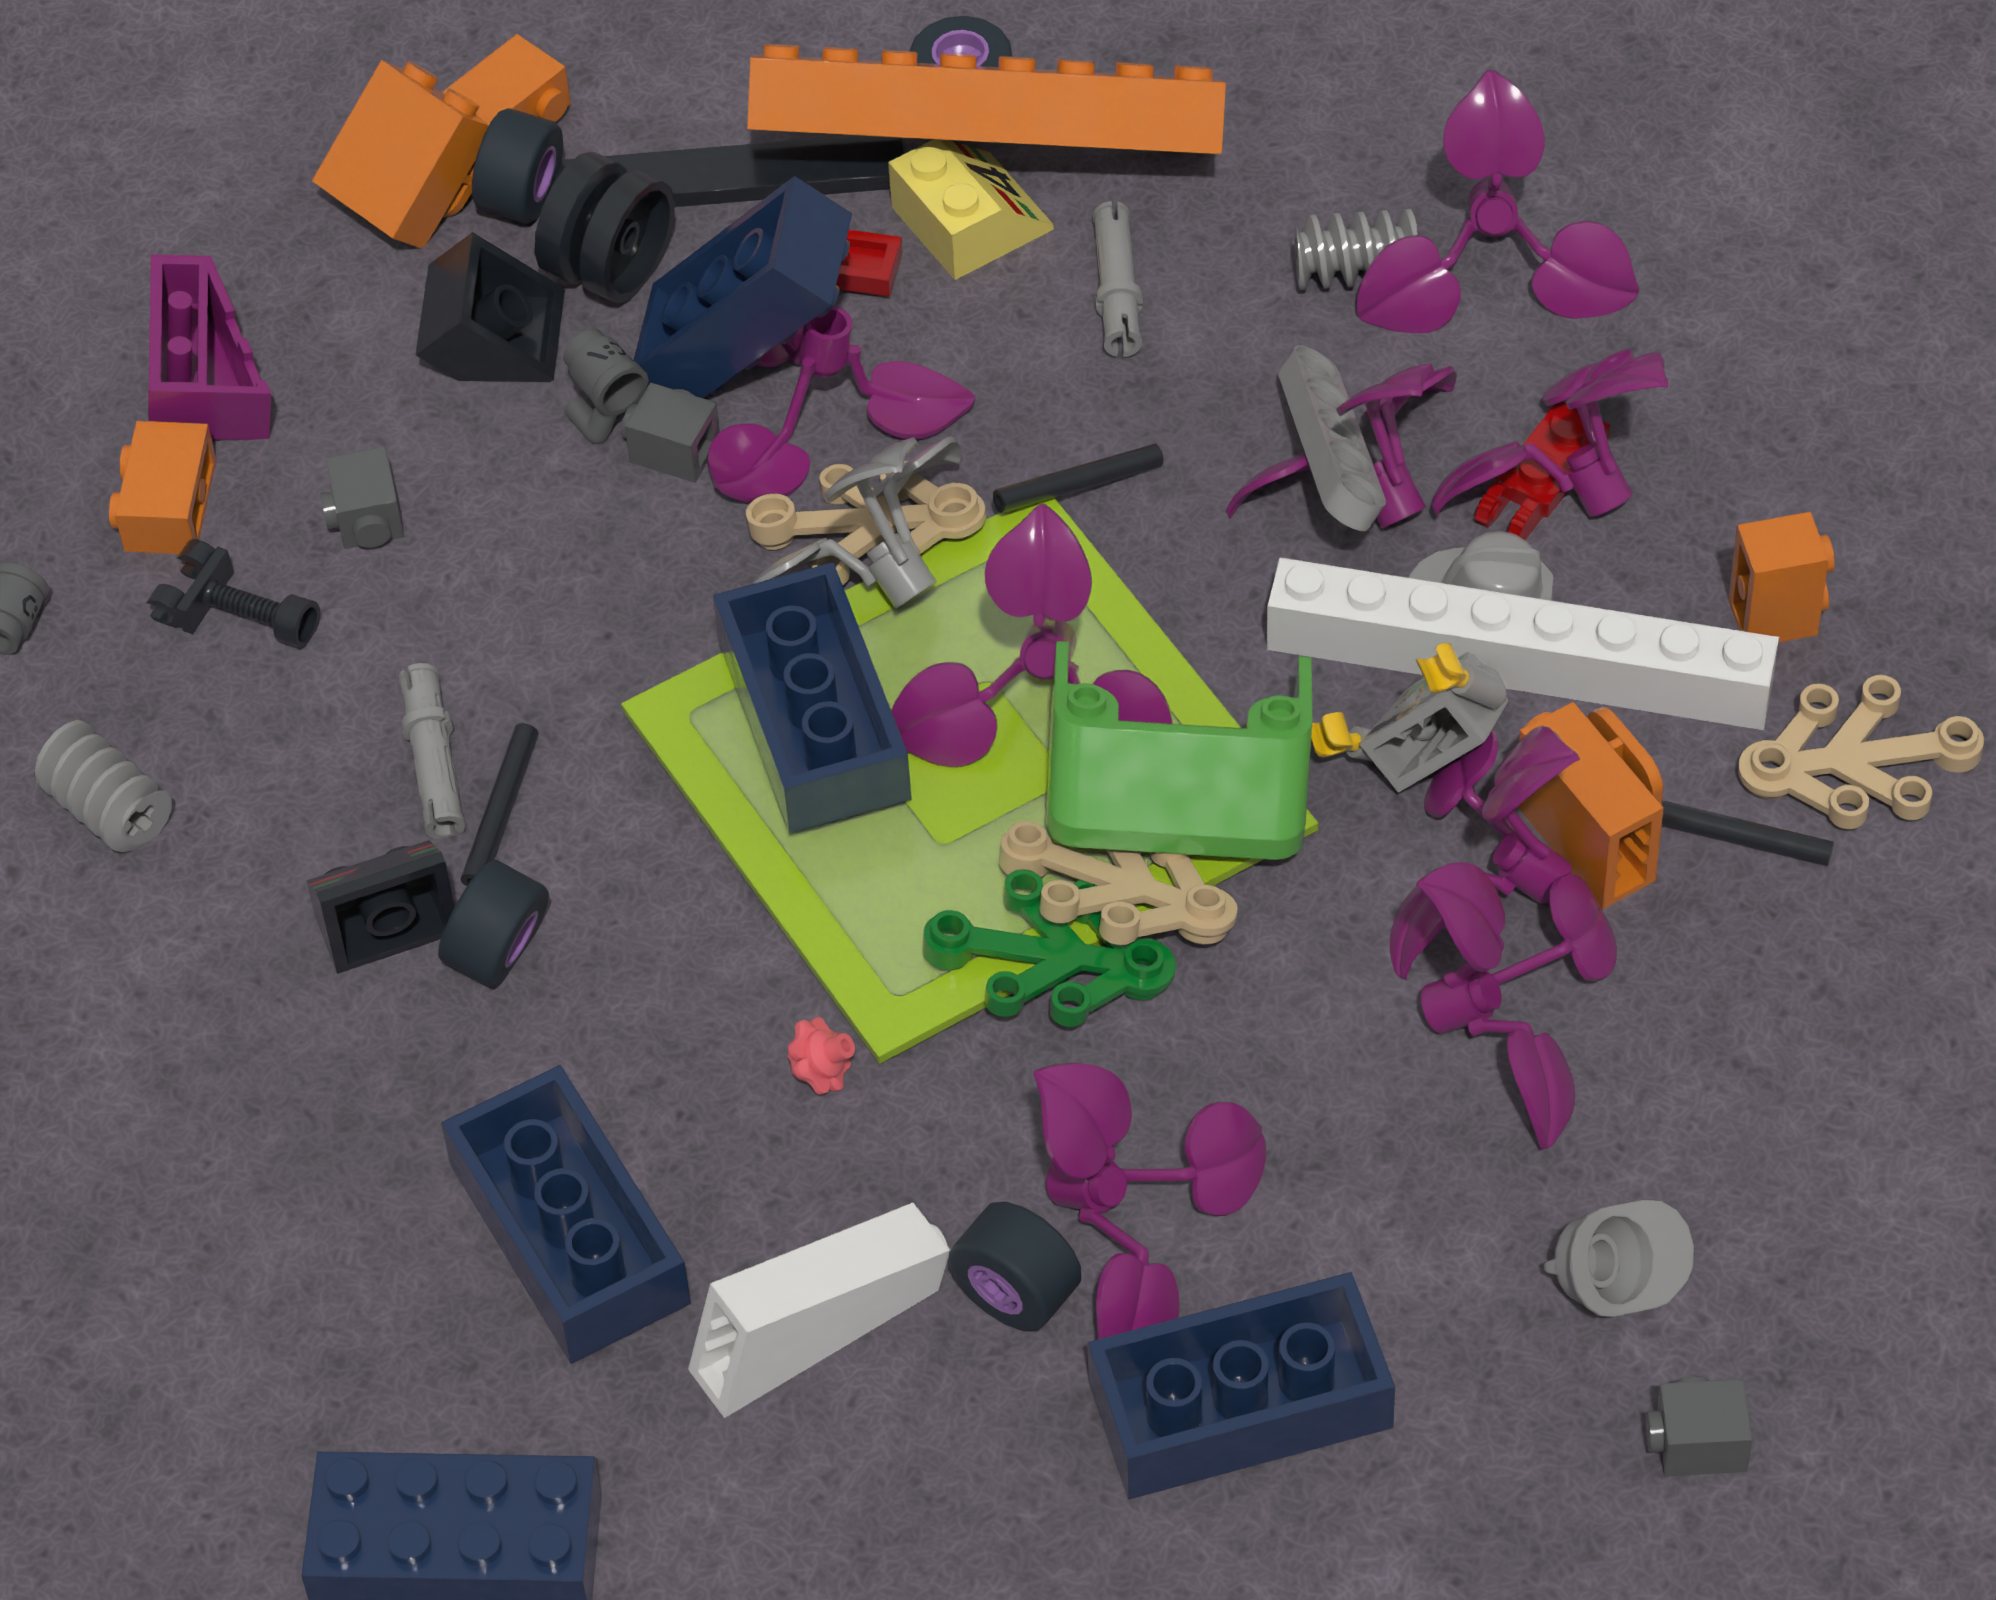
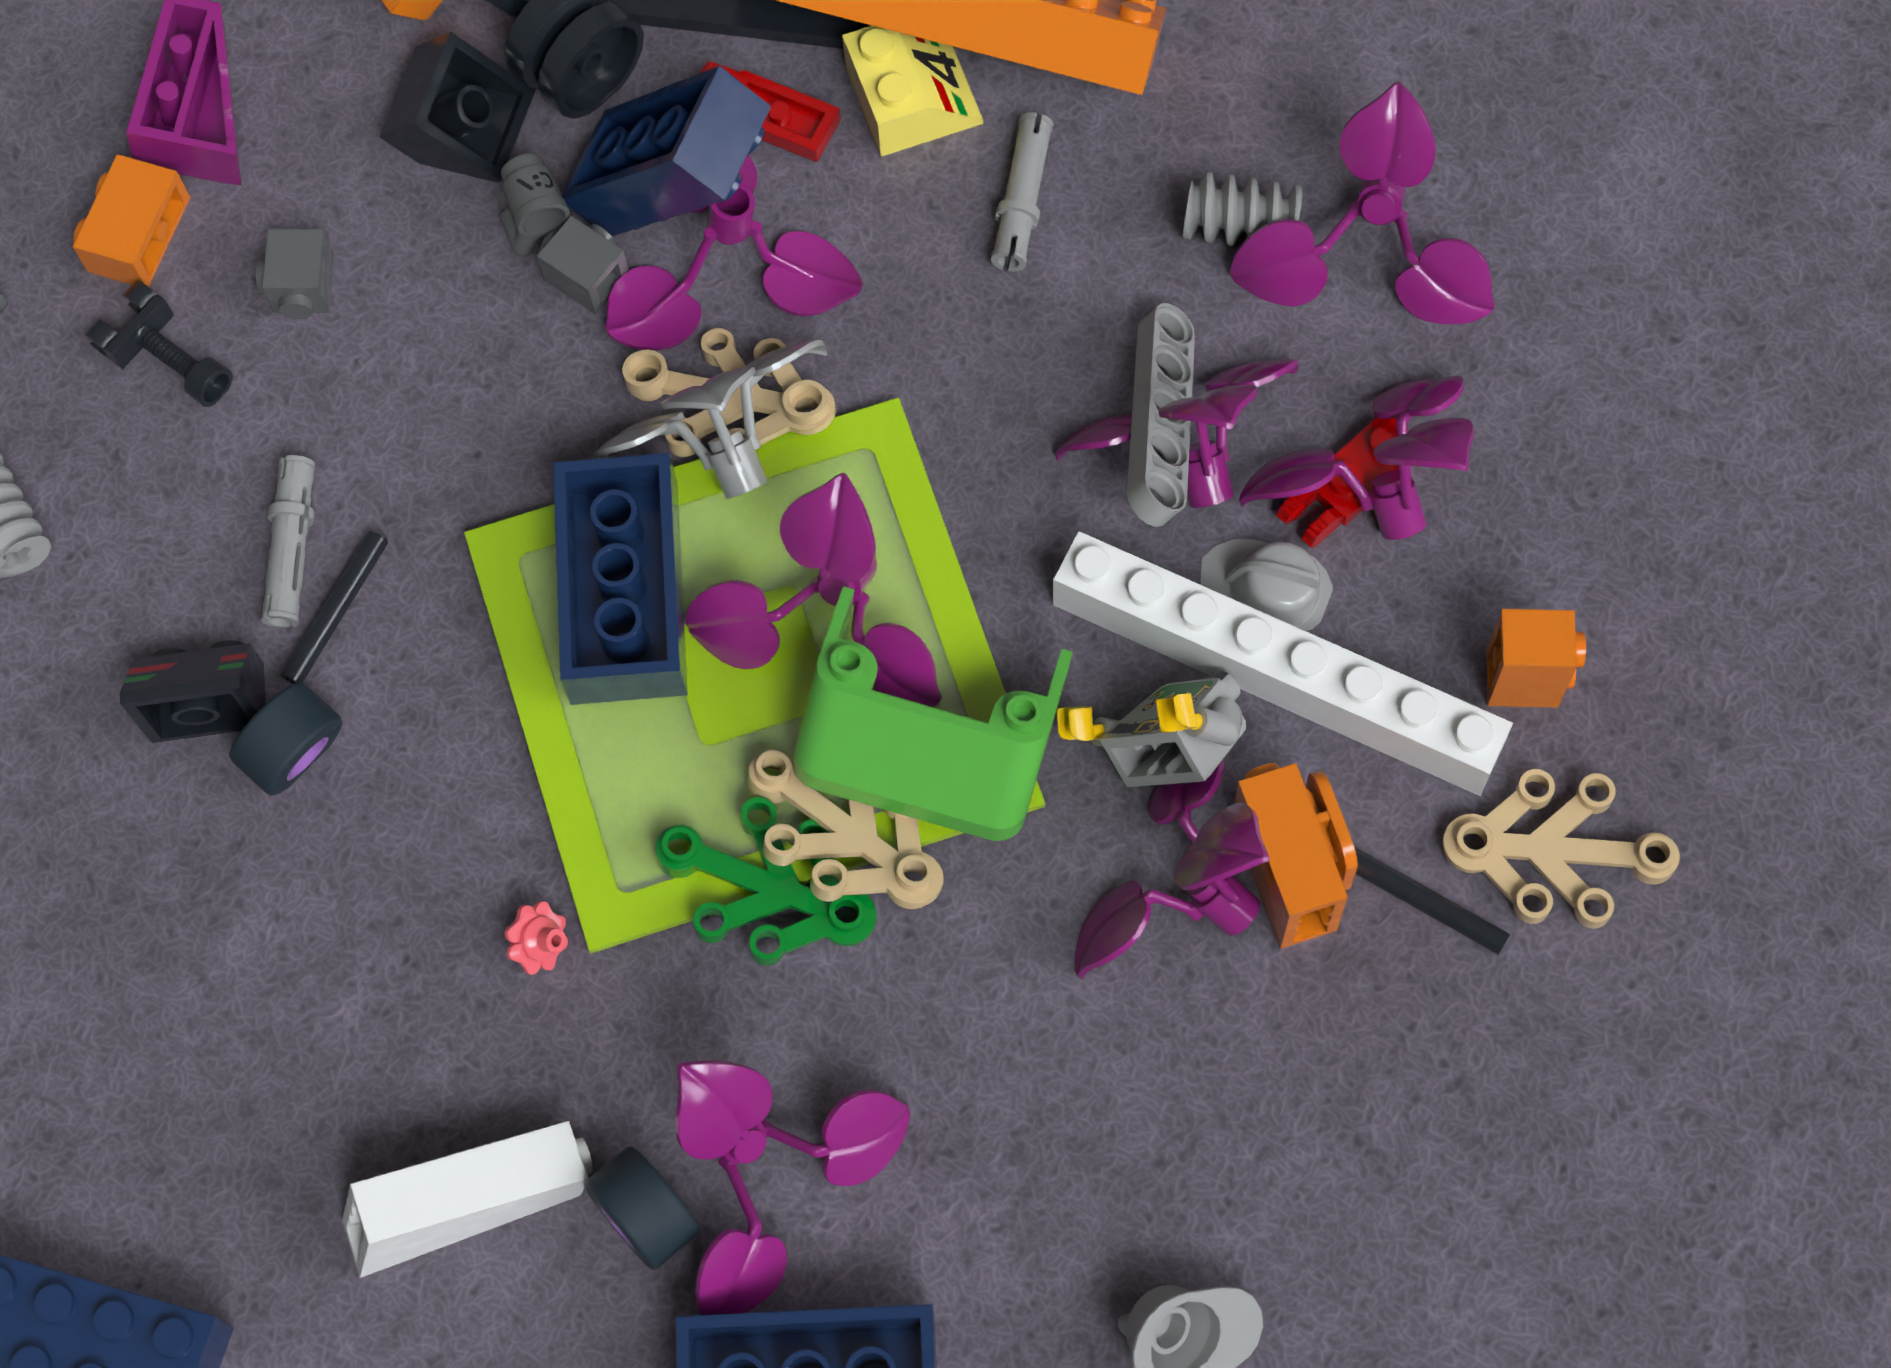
camera: 15 degrees right, 15 degrees up
(566, 1213) = (266, 1051): dark blue brick -> none
(1077, 478) = (928, 394): black piece -> none
(1469, 997) = (1129, 979): magenta plant -> none

